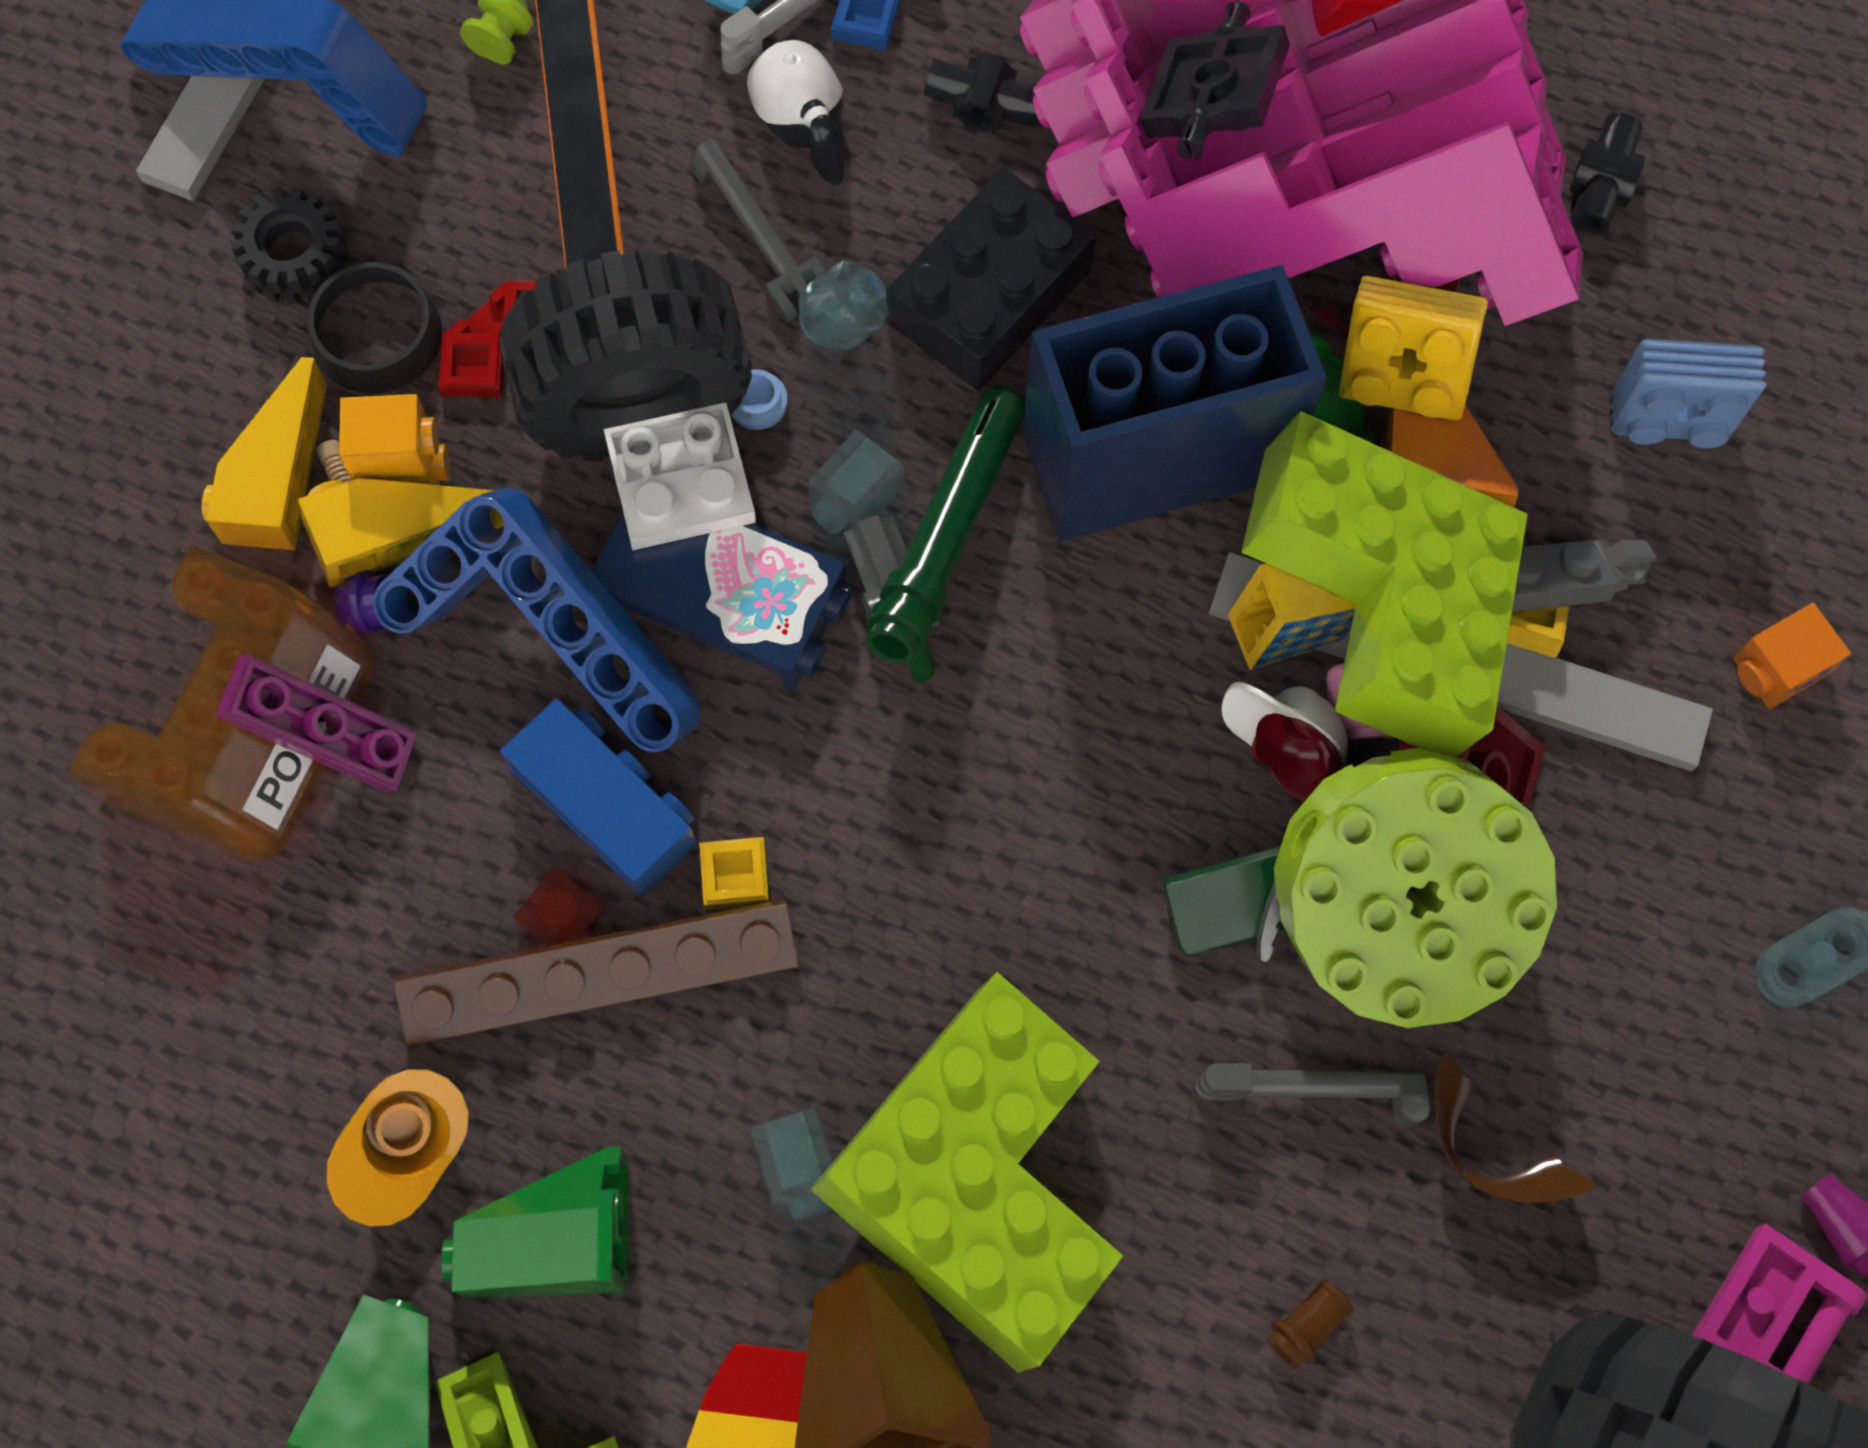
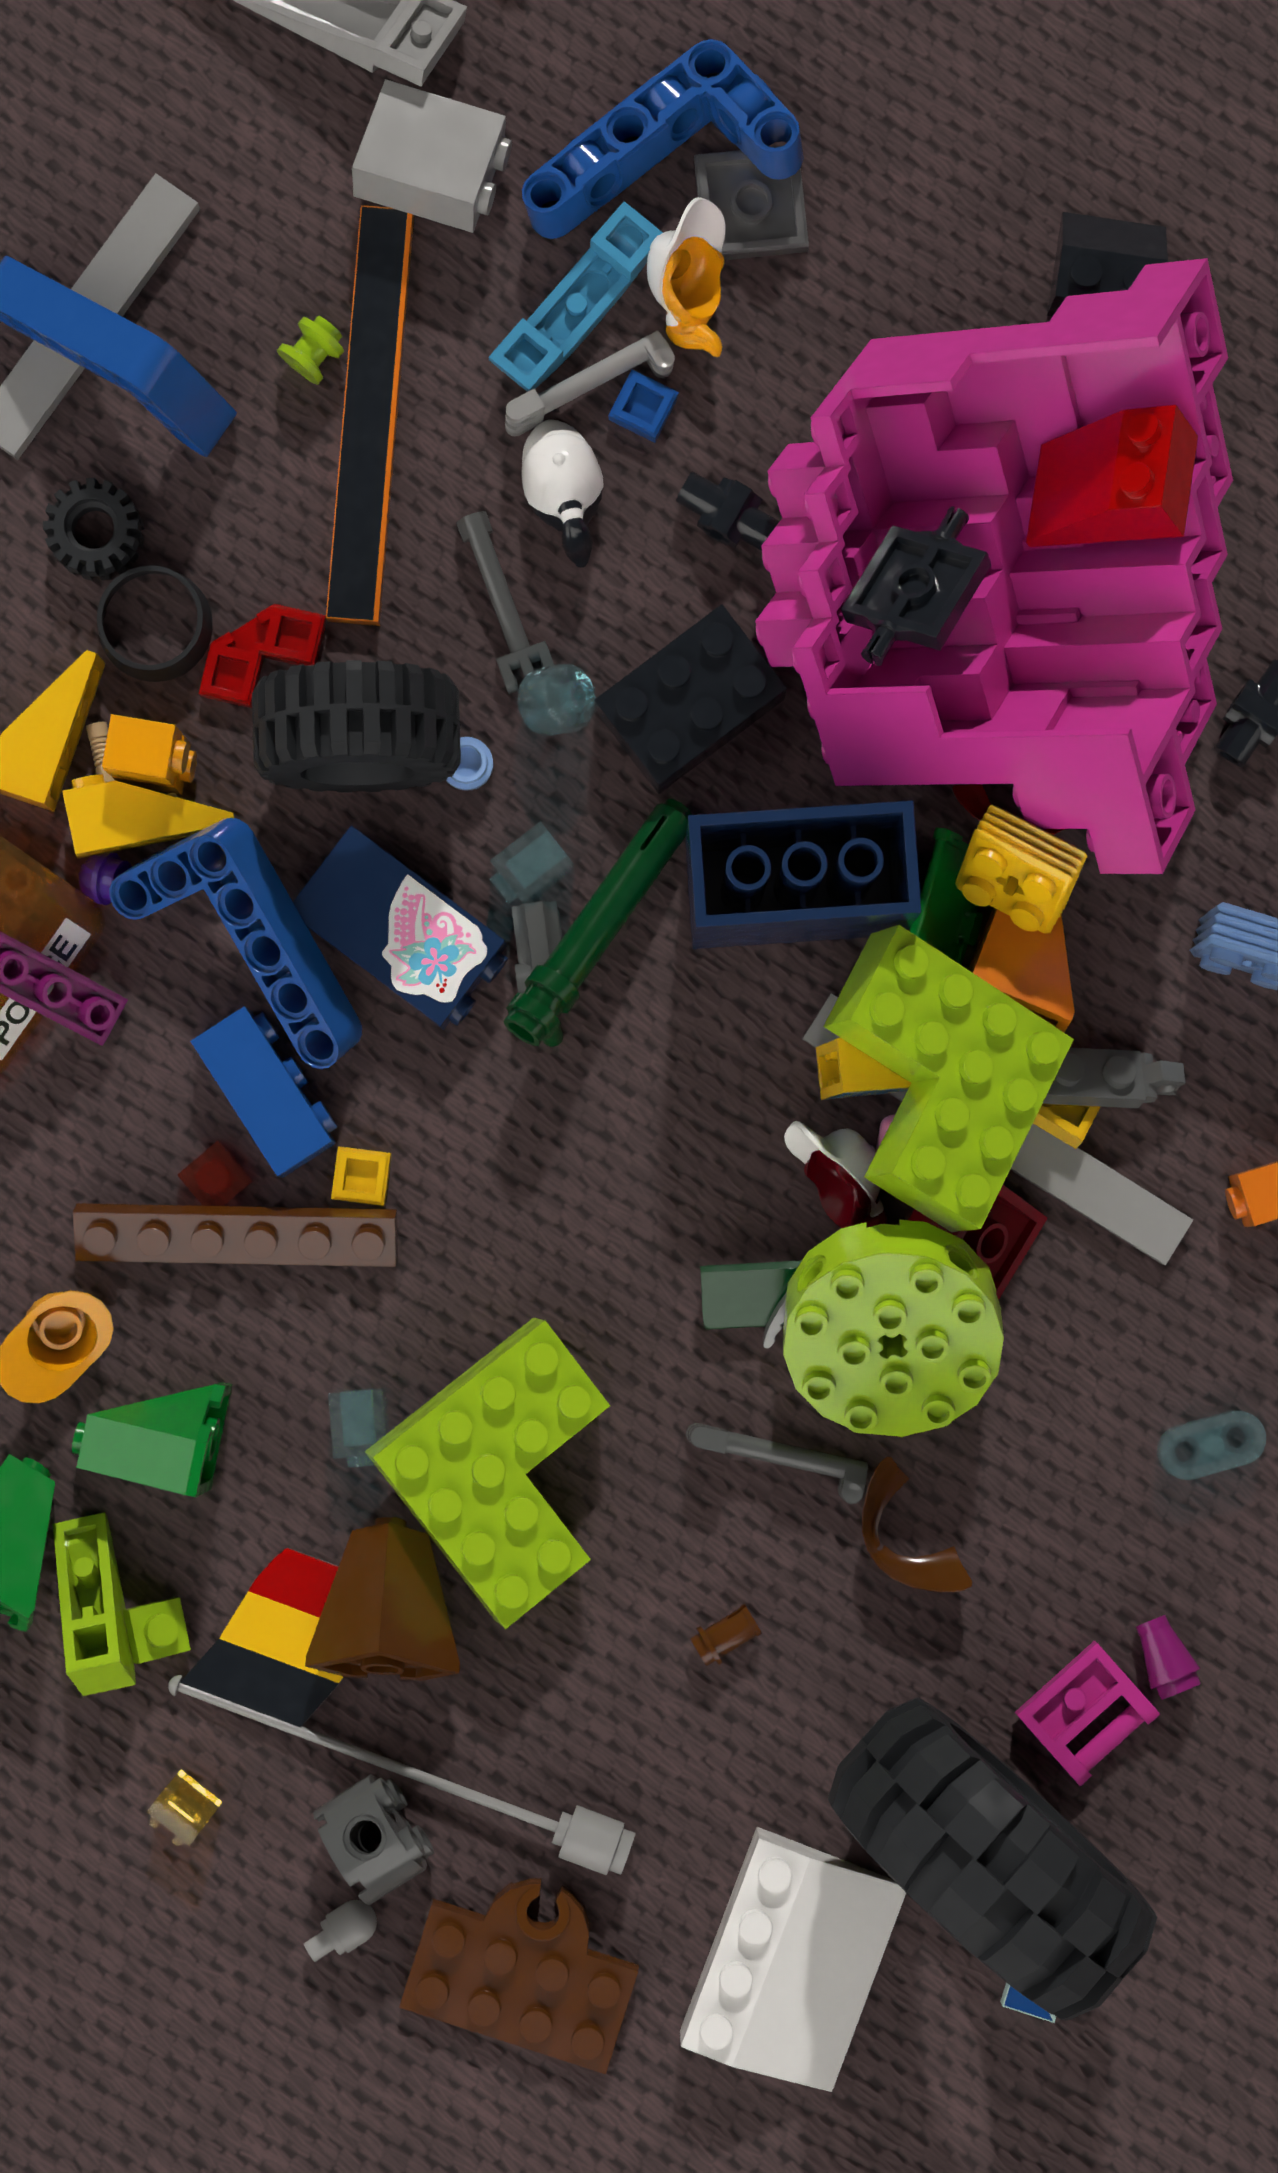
camera: 15 degrees right, 15 degrees up
(679, 476) = (382, 834): white plate -> none

